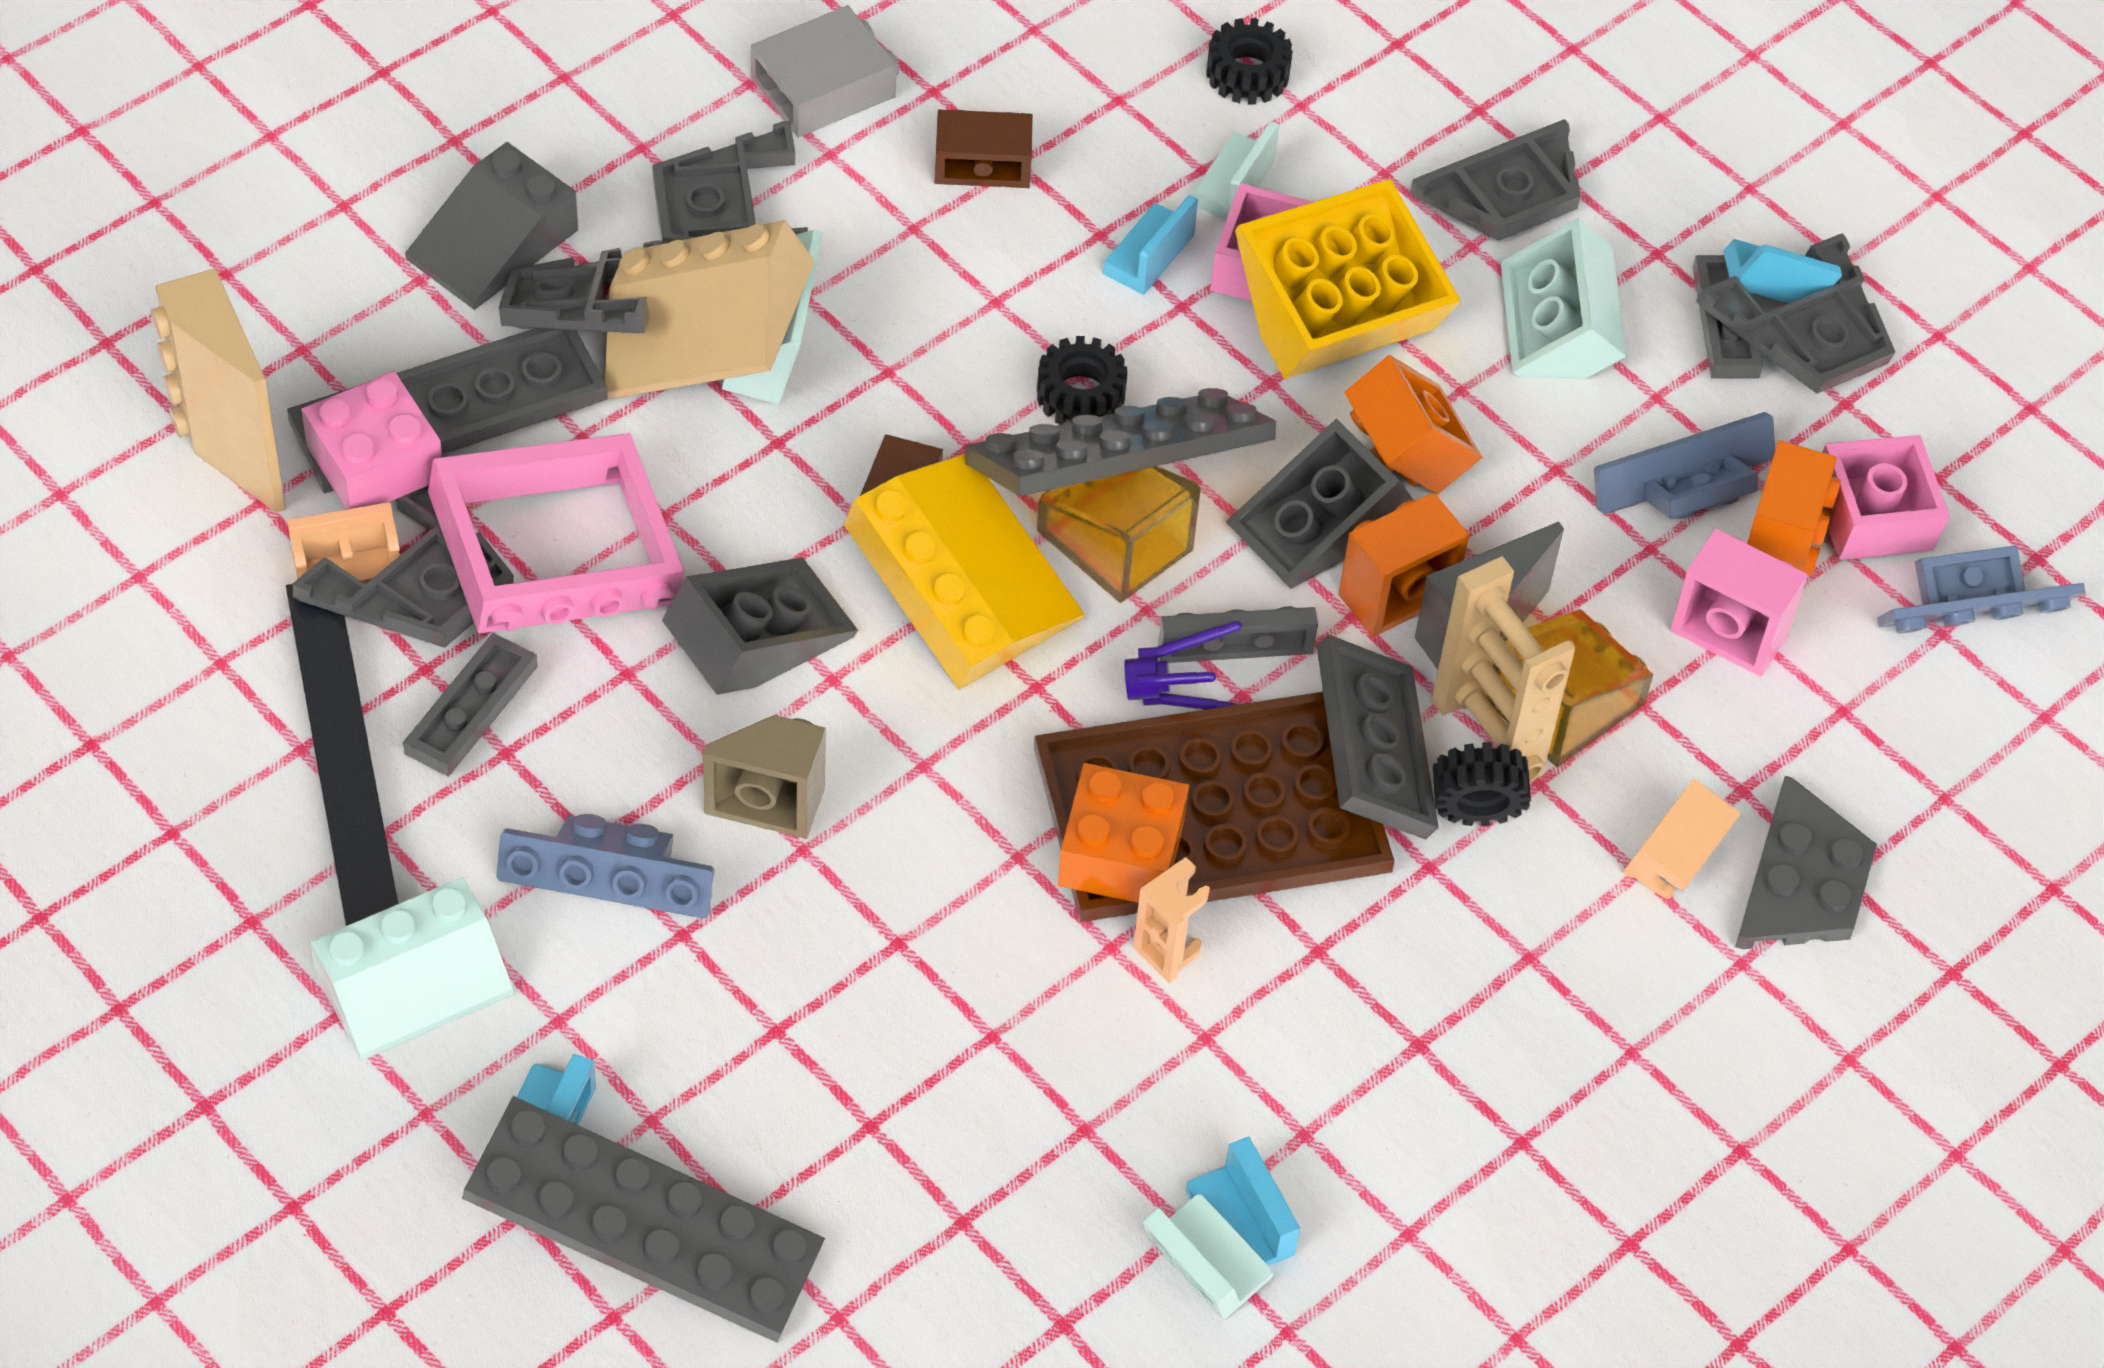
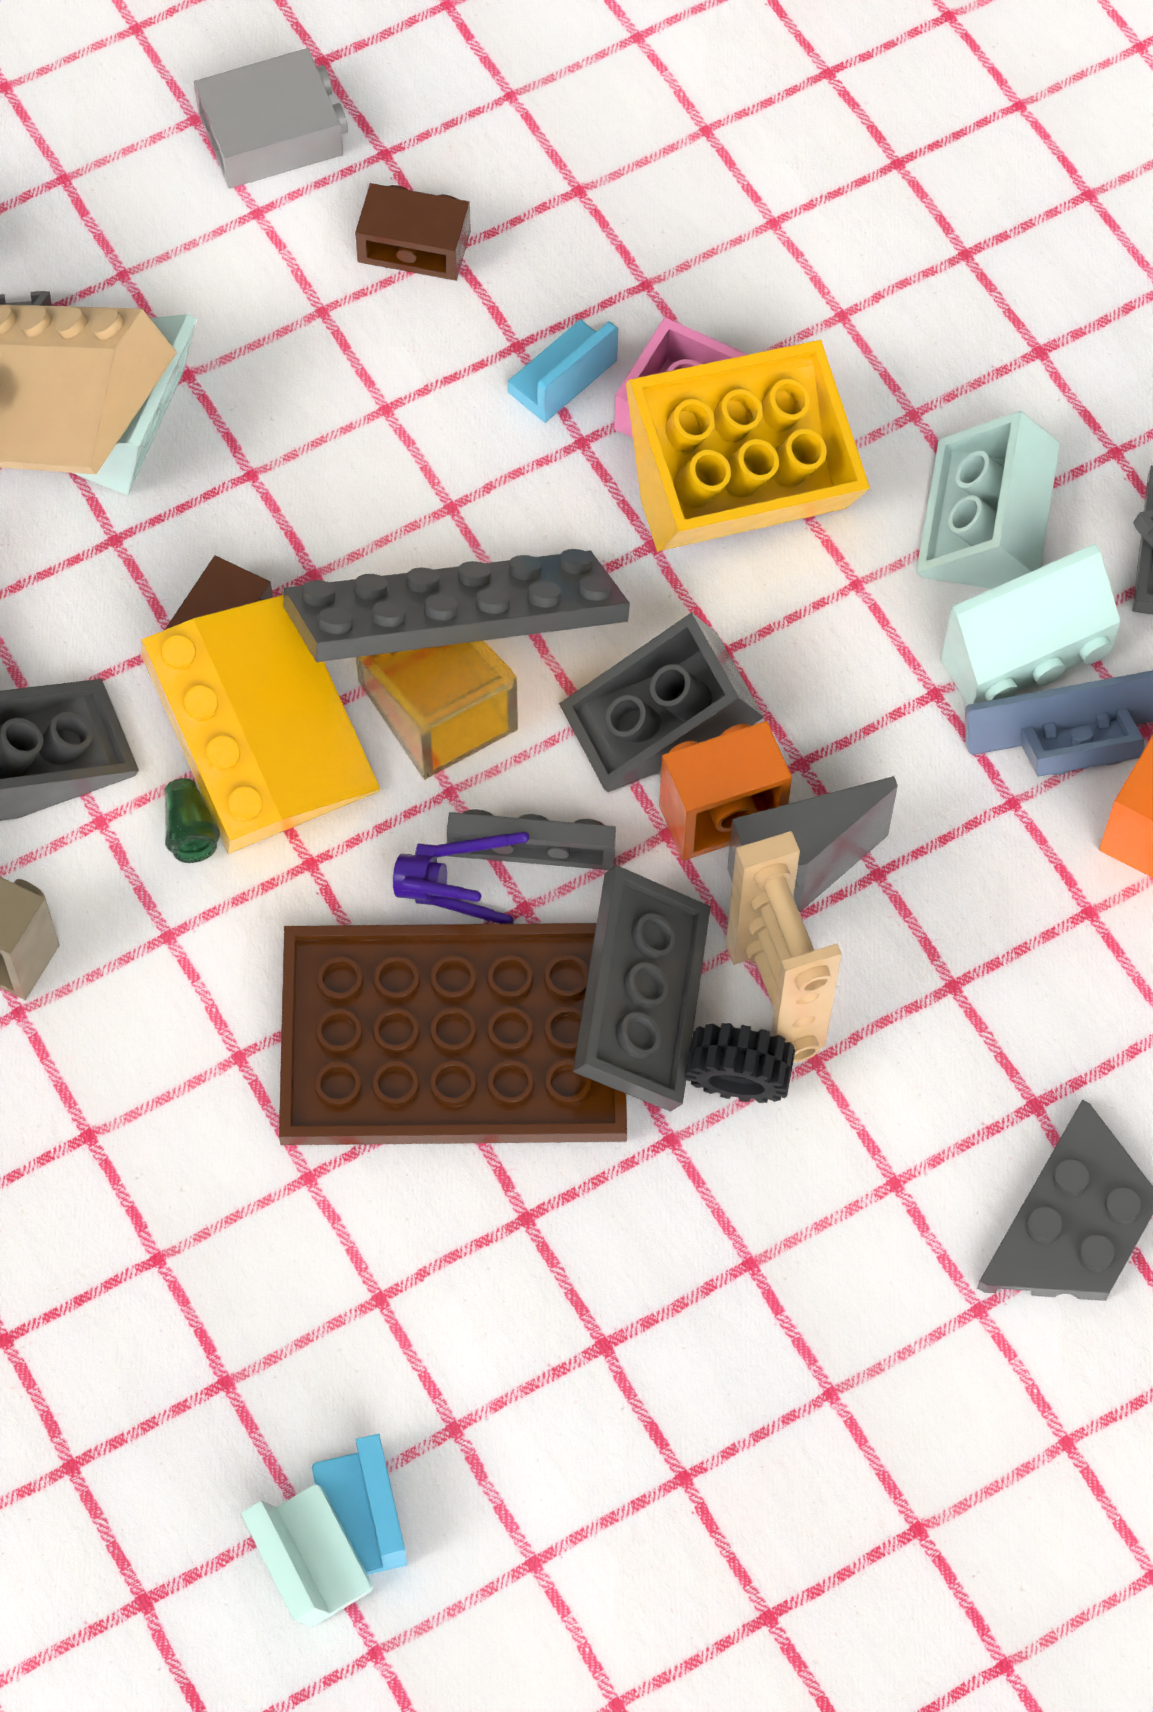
camera: 15 degrees right, 10 degrees up
(712, 188) = (111, 248): dark grey wing -> none
(920, 665) = (188, 823): none -> clear green cone
(1084, 361) = (441, 494): black tyre -> none
(1121, 832) = (336, 1063): orange brick -> none
(1164, 920) = (356, 1159): light nougat hinge -> none
(1238, 162) = (680, 291): light aqua panel -> none
(1245, 79) = (727, 142): black tyre -> none
(1412, 425) = (777, 628): orange brick -> none
(1507, 184) = (970, 349): dark grey wing -> none
(1601, 685) = (889, 952): clear yellow slope -> none
(1633, 396) = (1032, 628): none -> light aqua slope
(1682, 840) = (947, 1160): light nougat hinge -> none
(1738, 602) = (1079, 890): bright pink brick -> none

